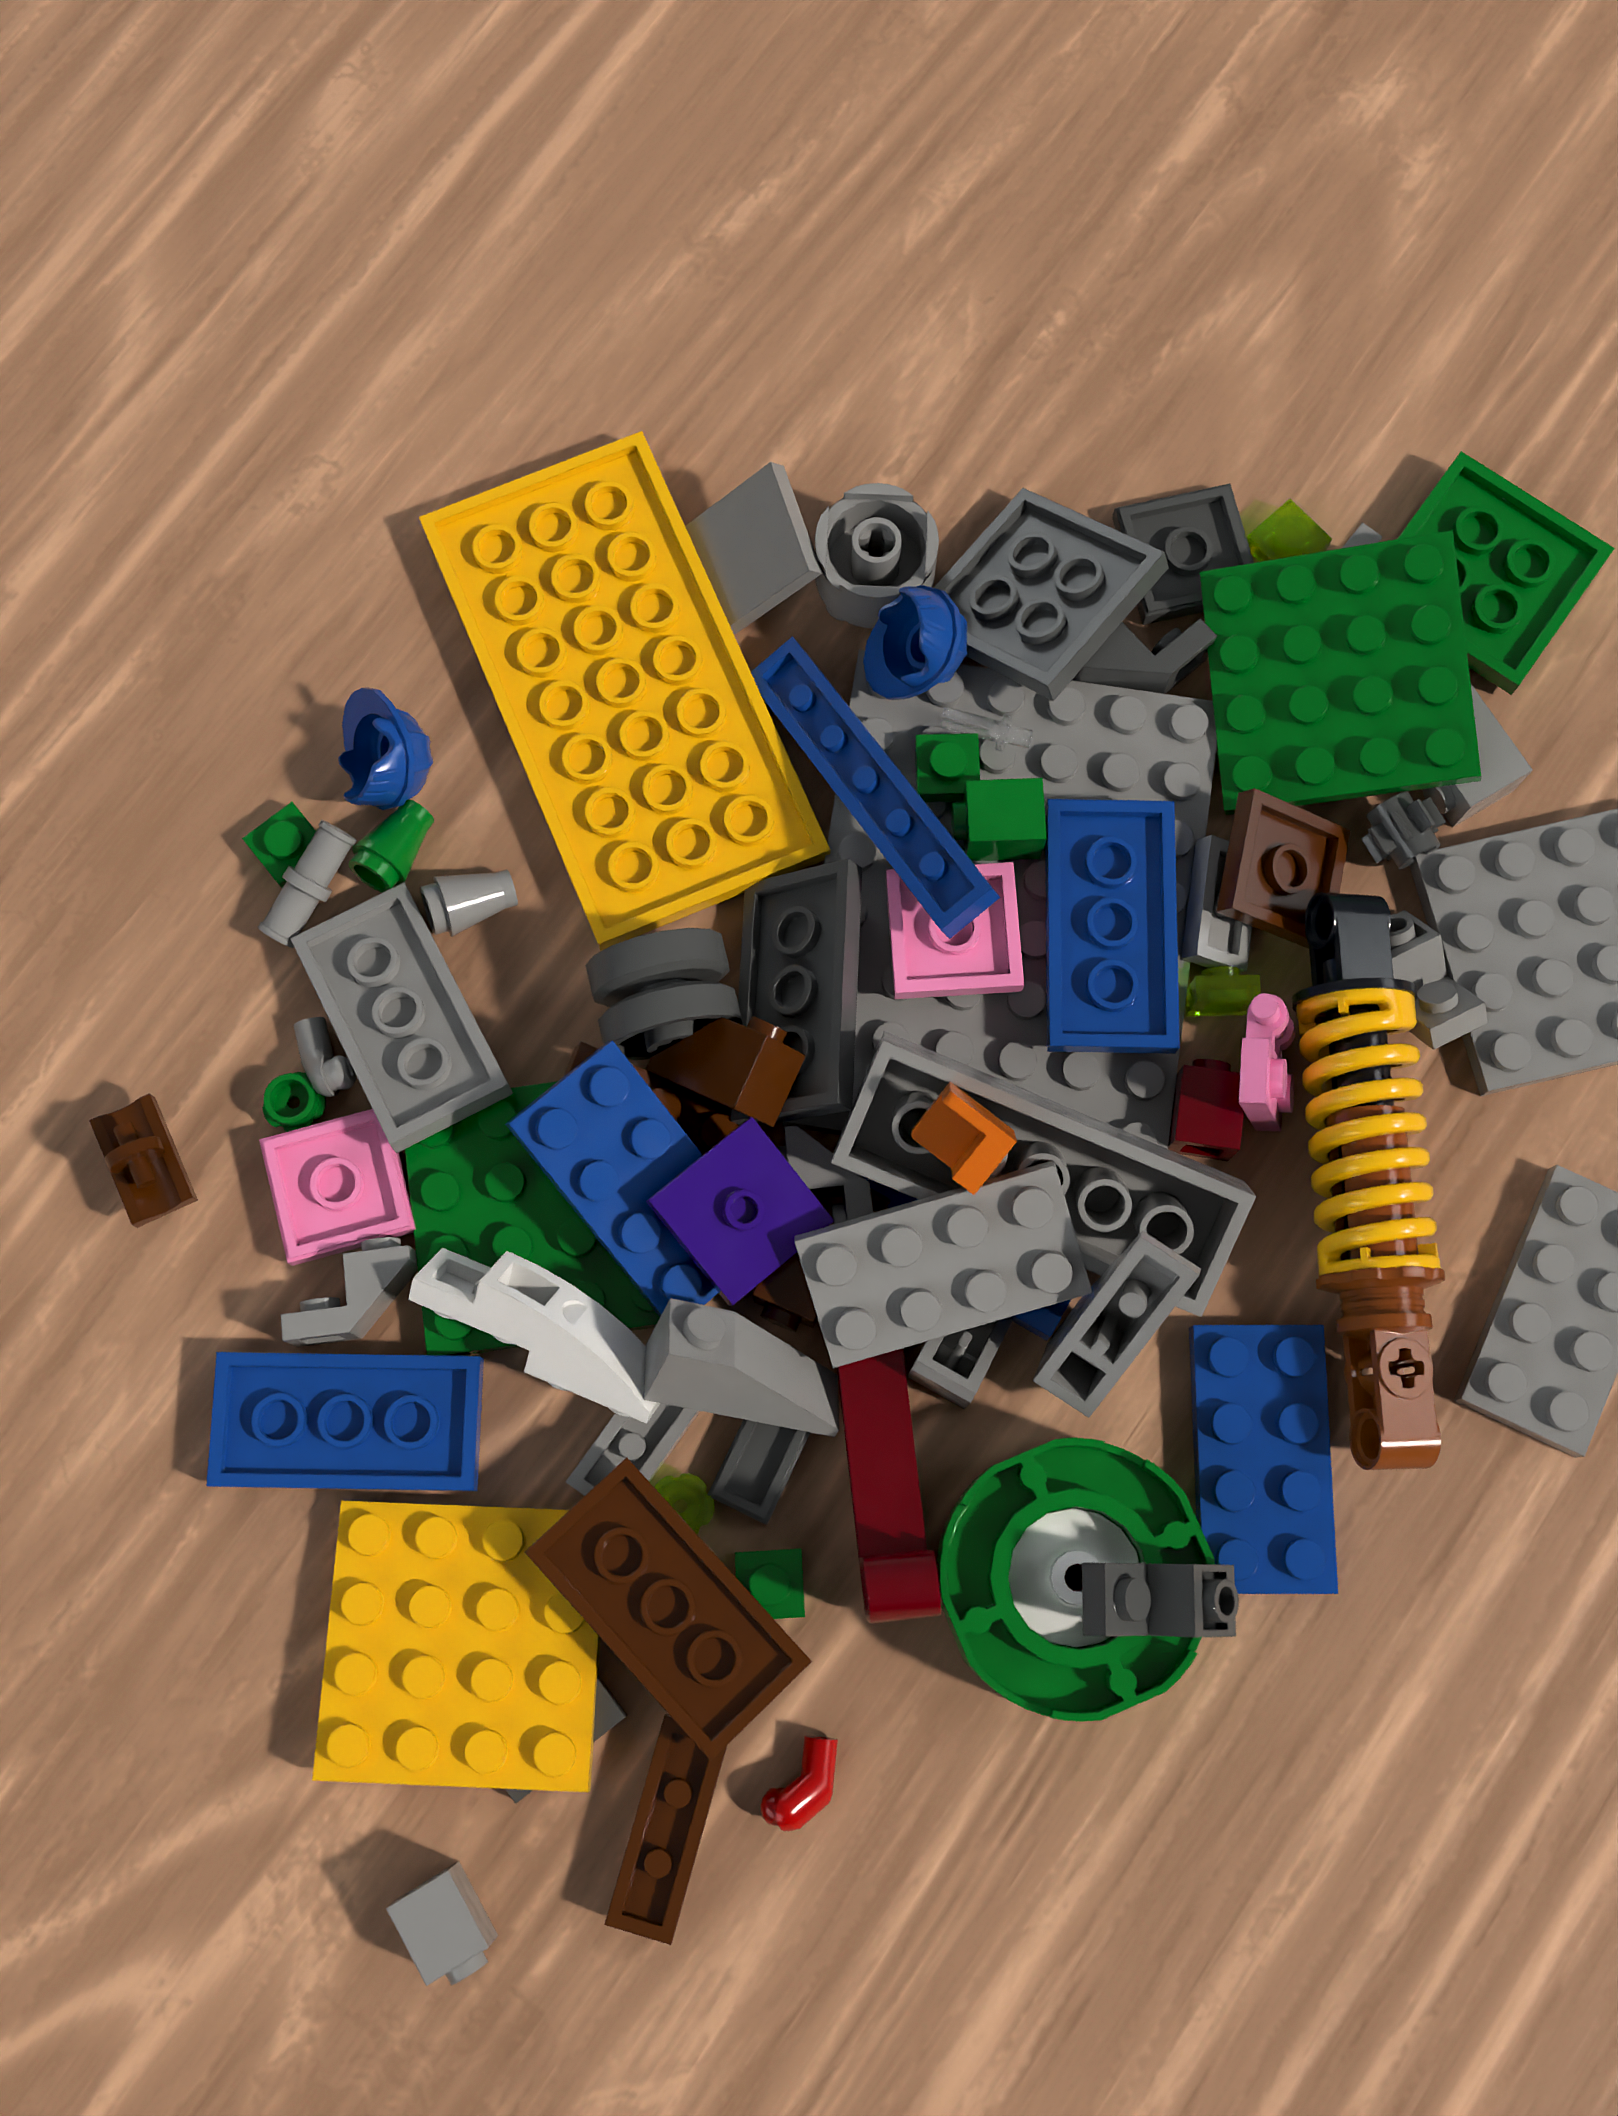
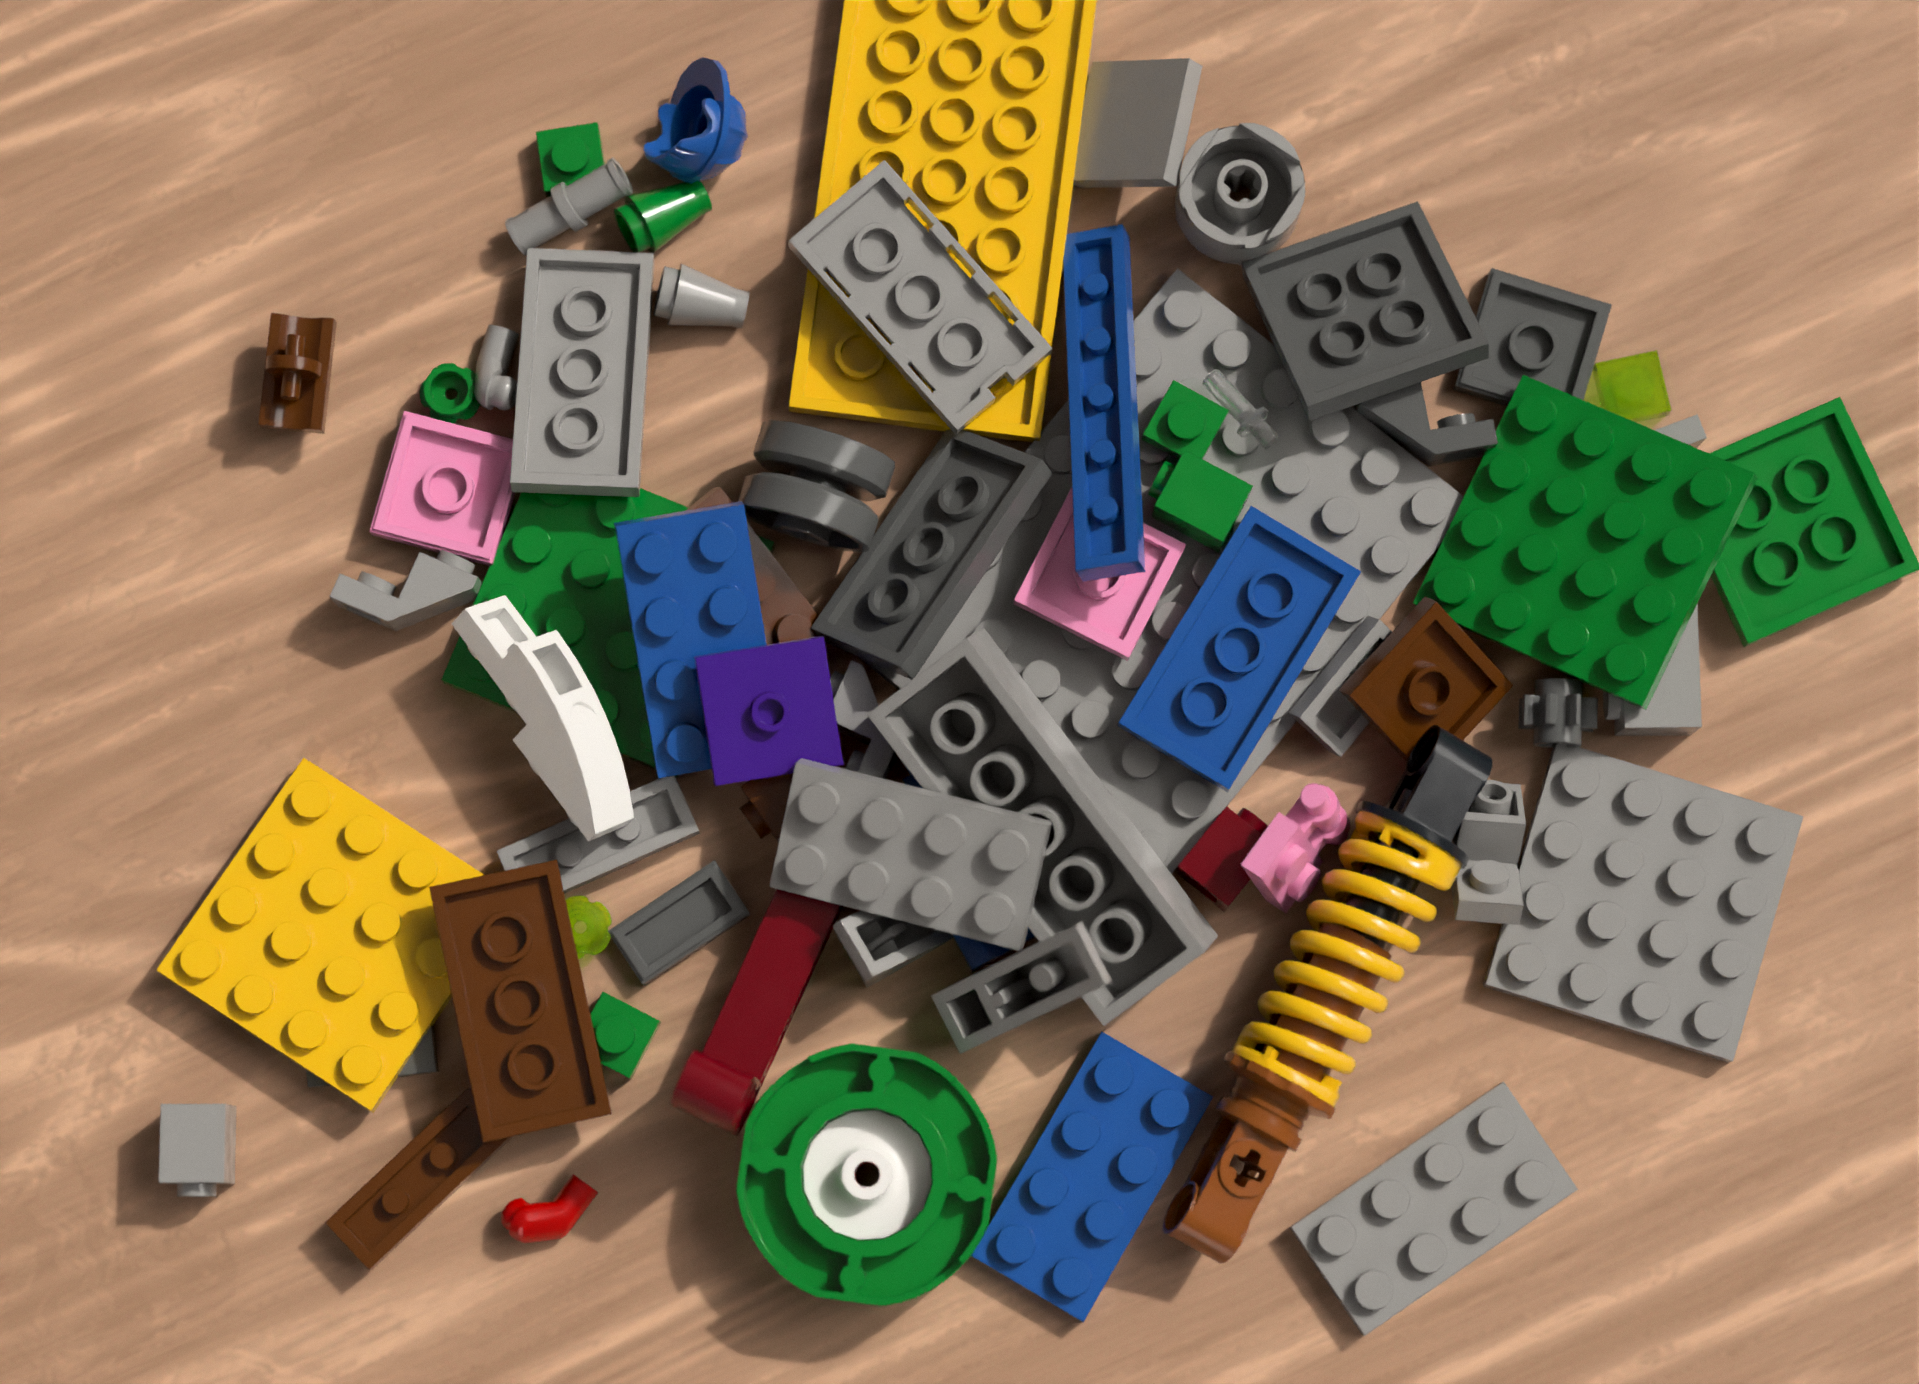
camera: 30 degrees right, 5 degrees up
(346, 1421) = (344, 694): blue plate -> none
(656, 789) = (919, 296): none -> light grey piece
(734, 1066) = (836, 585): reddish brown slope -> none
(736, 1369) = (690, 843): light grey slope -> none
(915, 643) = (1220, 299): blue piece -> none
(964, 1137) = (986, 758): orange panel -> none
(1159, 1600) = (918, 1227): dark grey slope -> none
(1221, 992) = (1305, 761): clear neon green plate -> none

